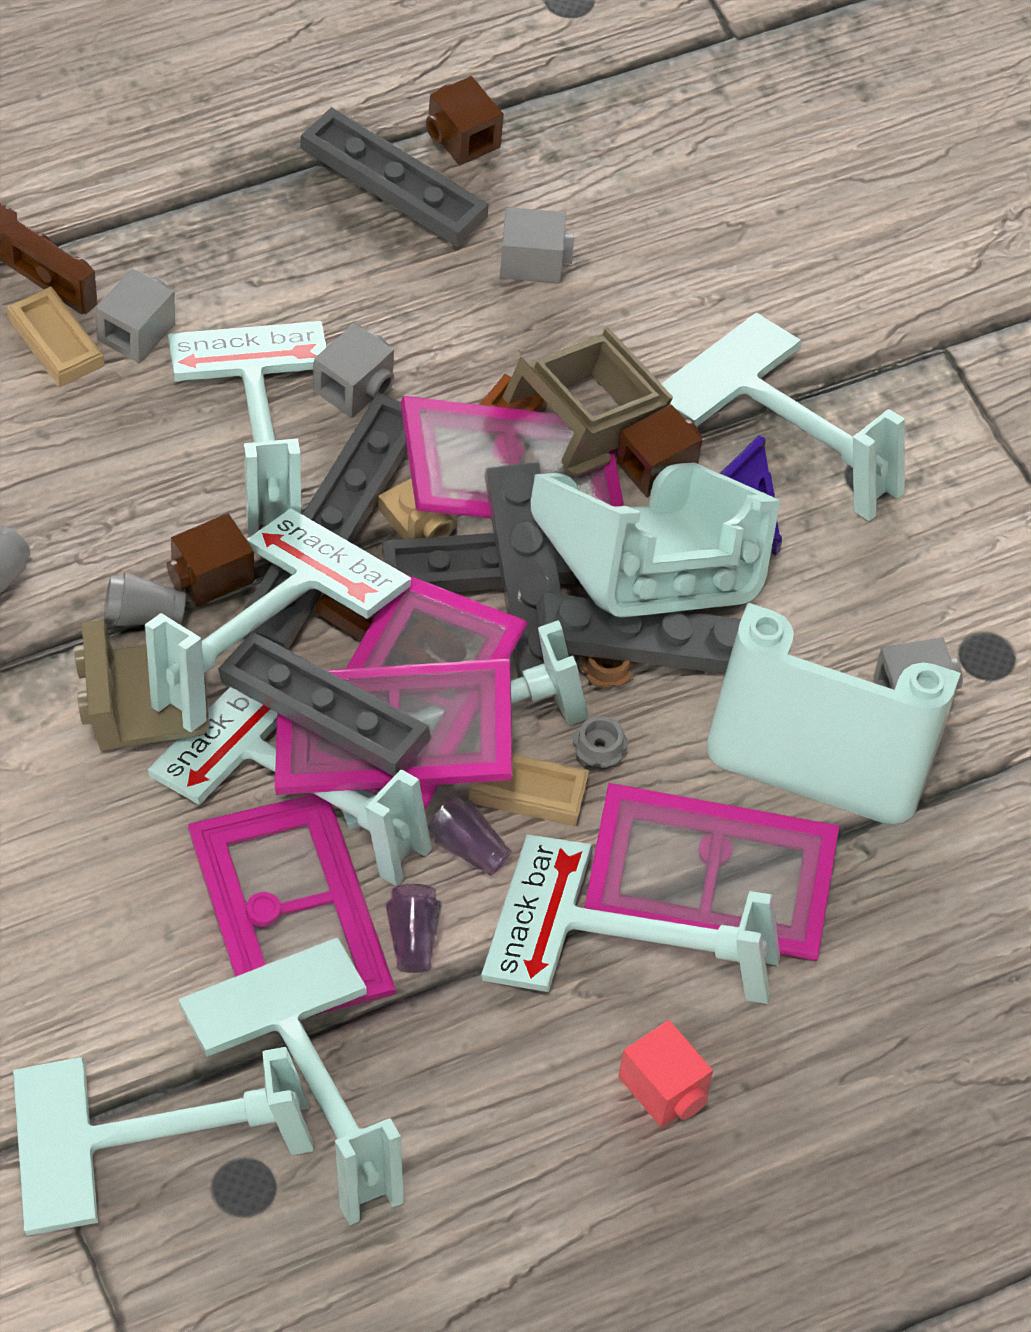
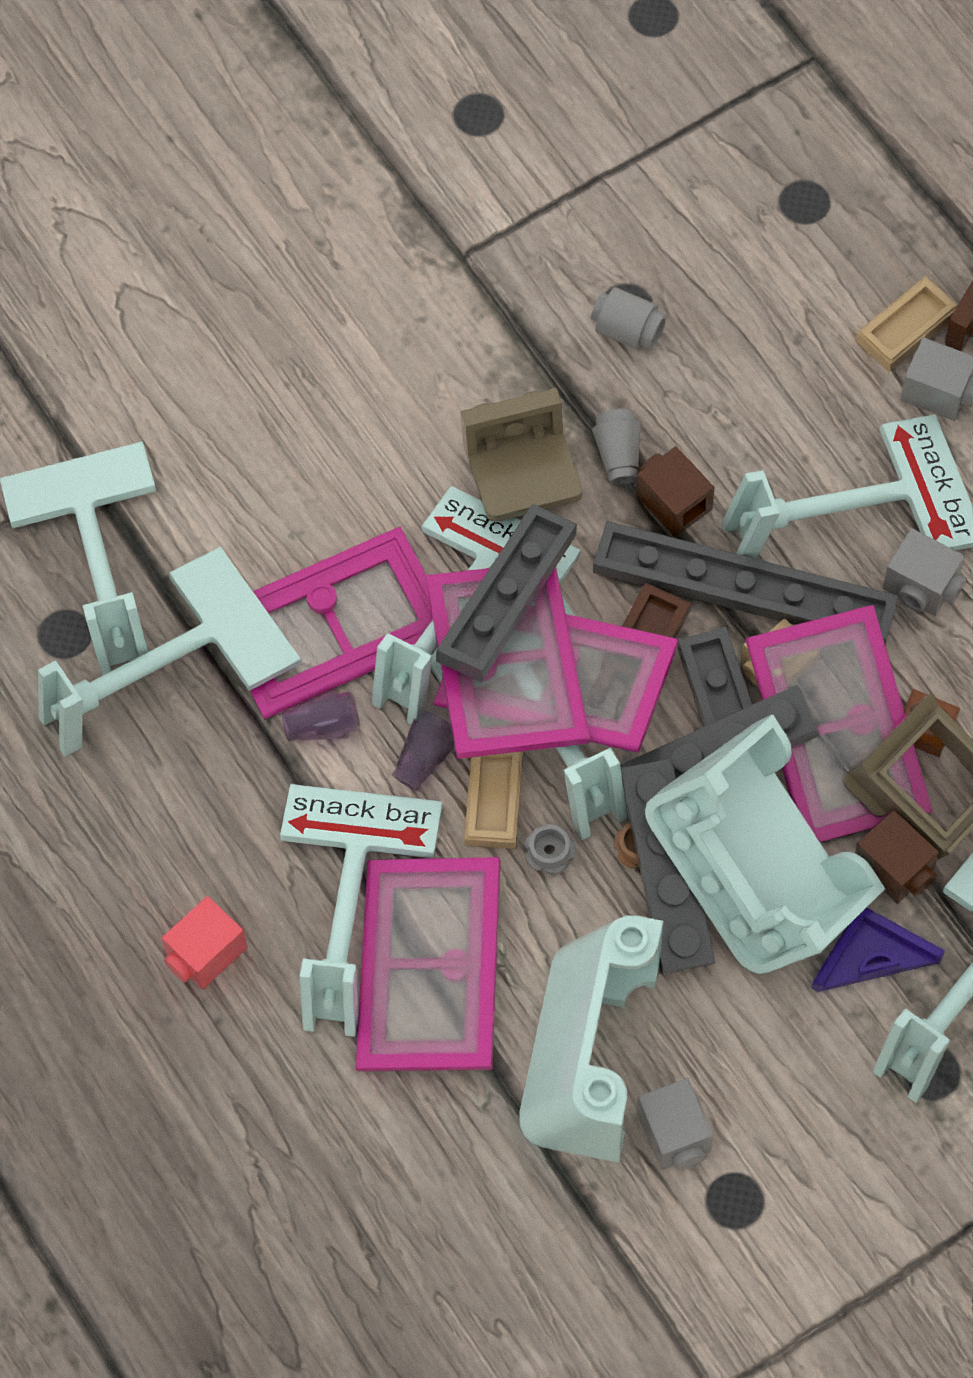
camera: 90 degrees right, 10 degrees up
(314, 559) = (670, 576): light aqua piece -> none

